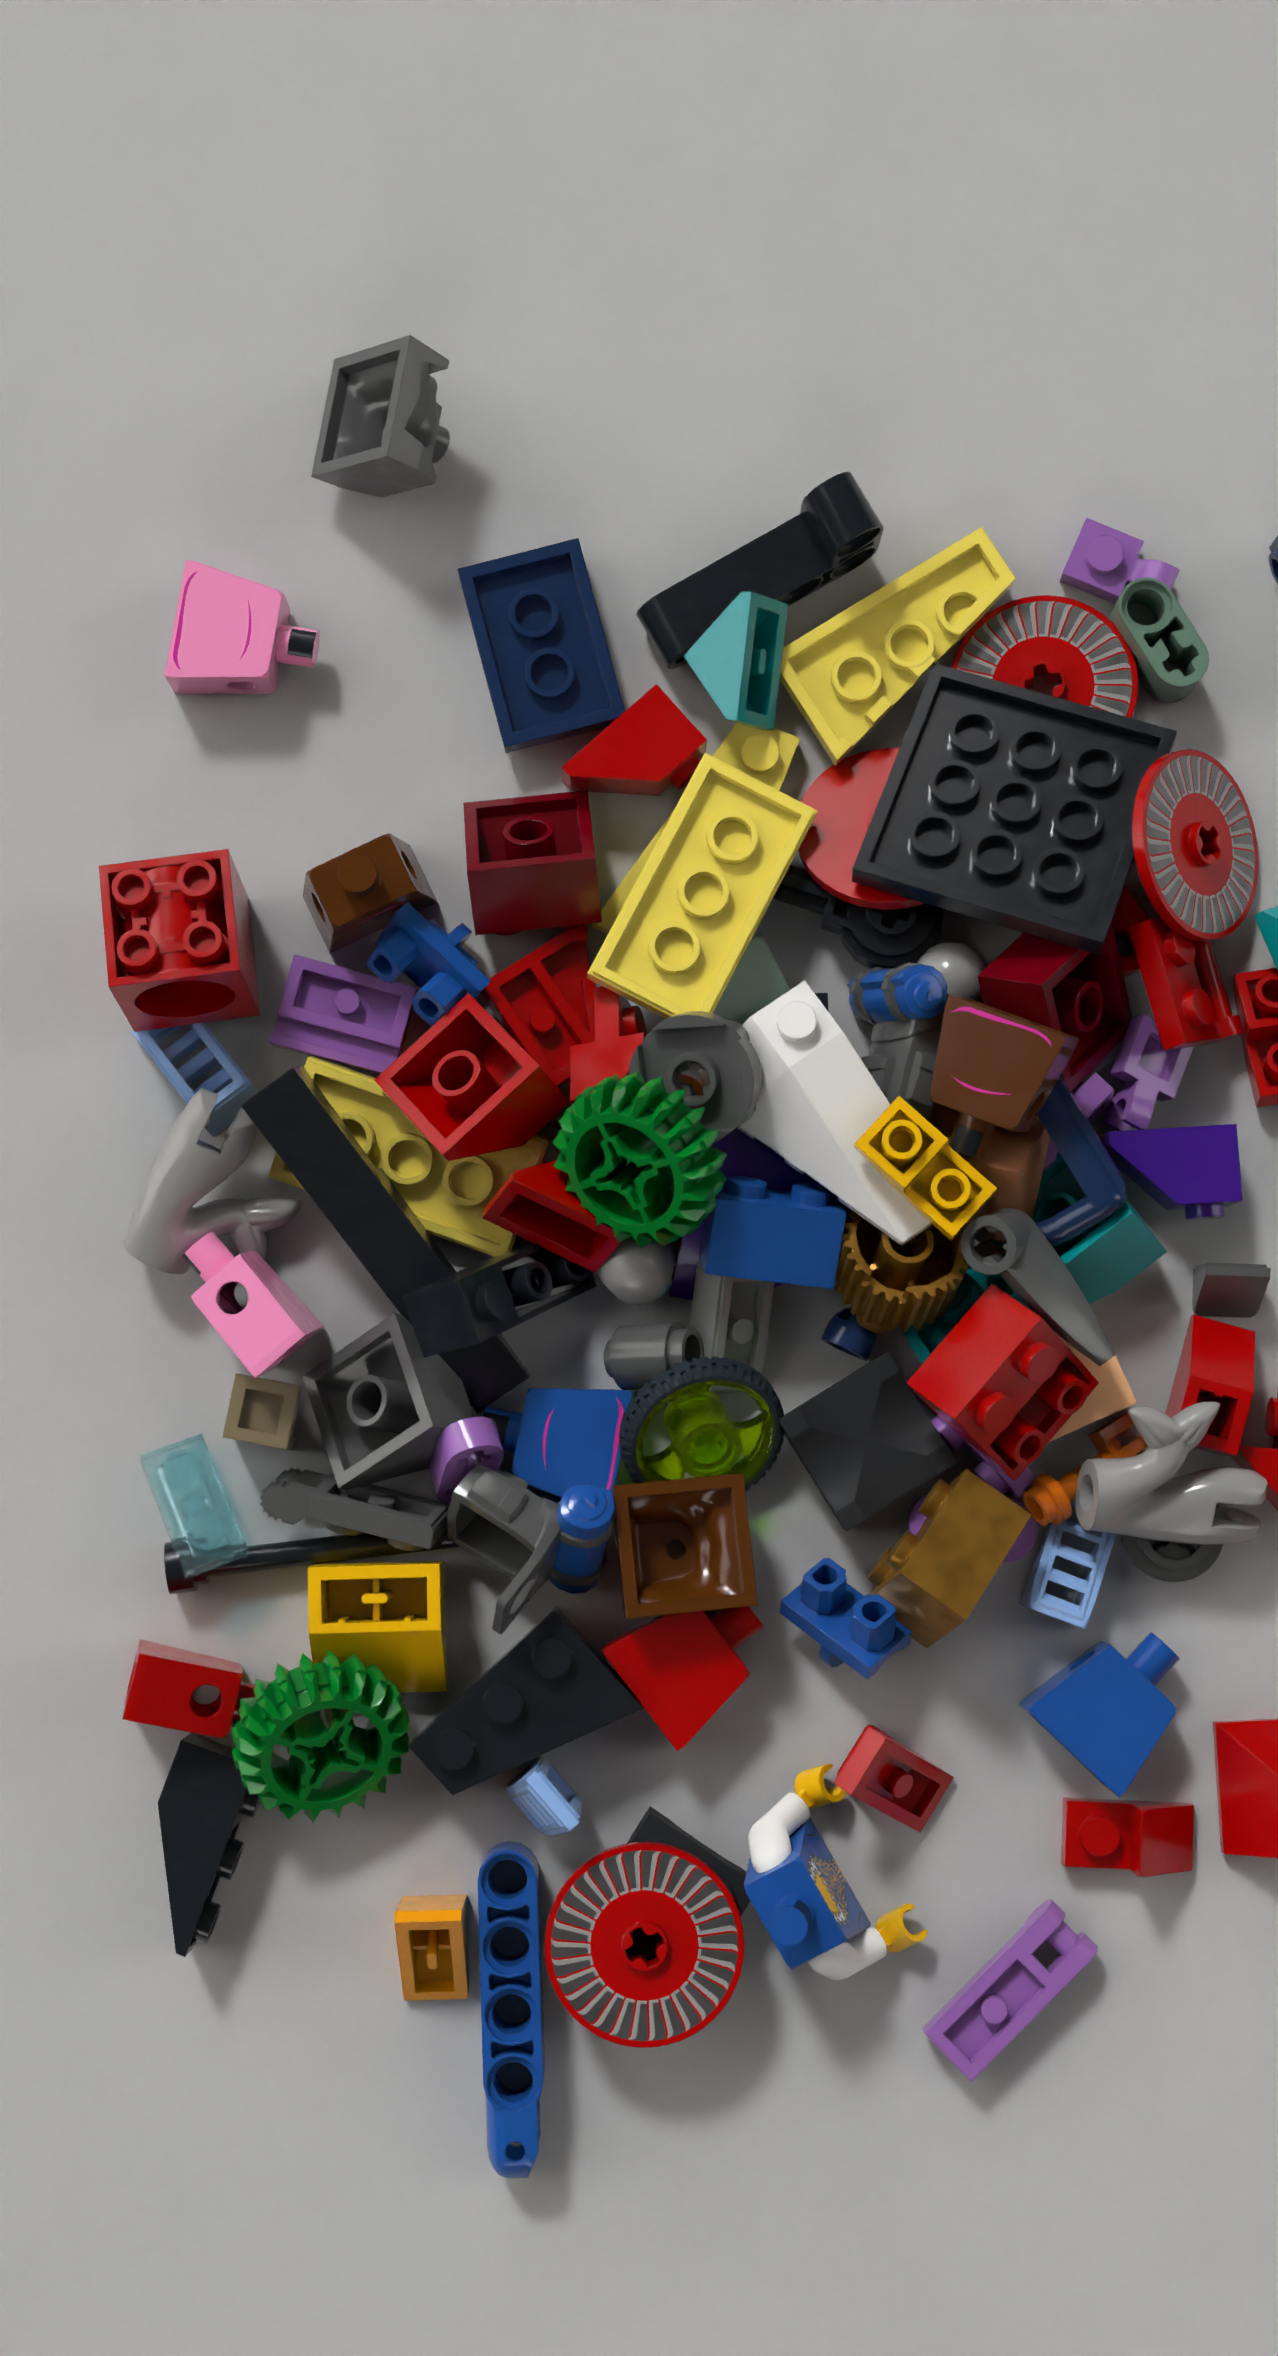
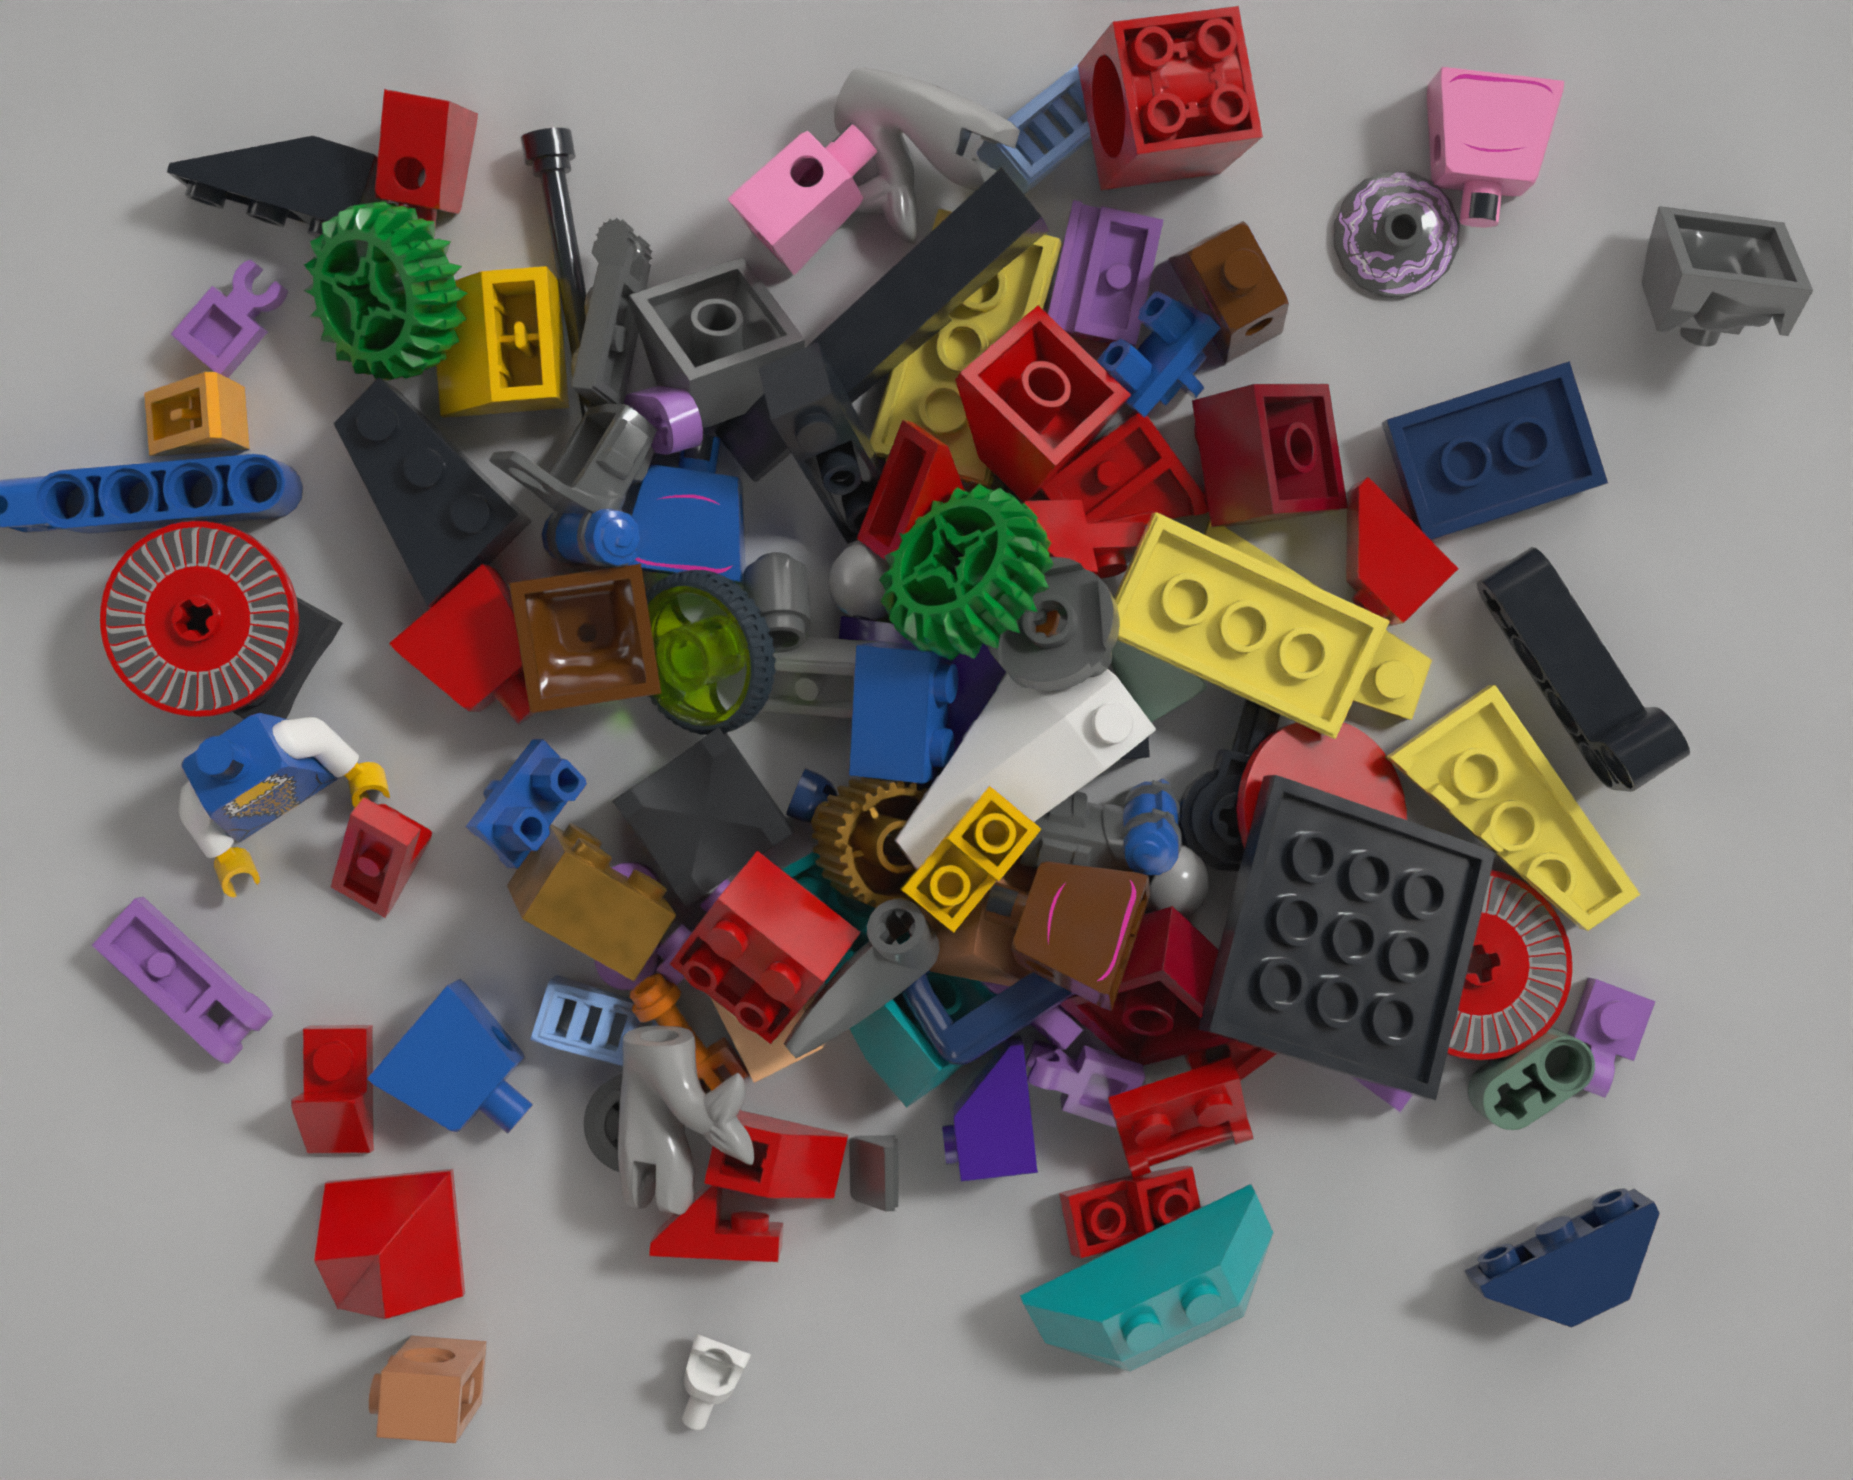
camera: 90 degrees right, 5 degrees up
(193, 1505) = (606, 154): clear light blue plate -> none
(263, 1412) = (699, 215): dark tan panel -> none
(325, 758) = (1380, 259): none -> dish
(344, 1910) = (224, 327): none -> medium lavender plate
(546, 1798) = (341, 521): light blue slope -> none
(742, 659) = (1488, 655): teal slope -> none
(1195, 845) = (1319, 1122): piece -> none

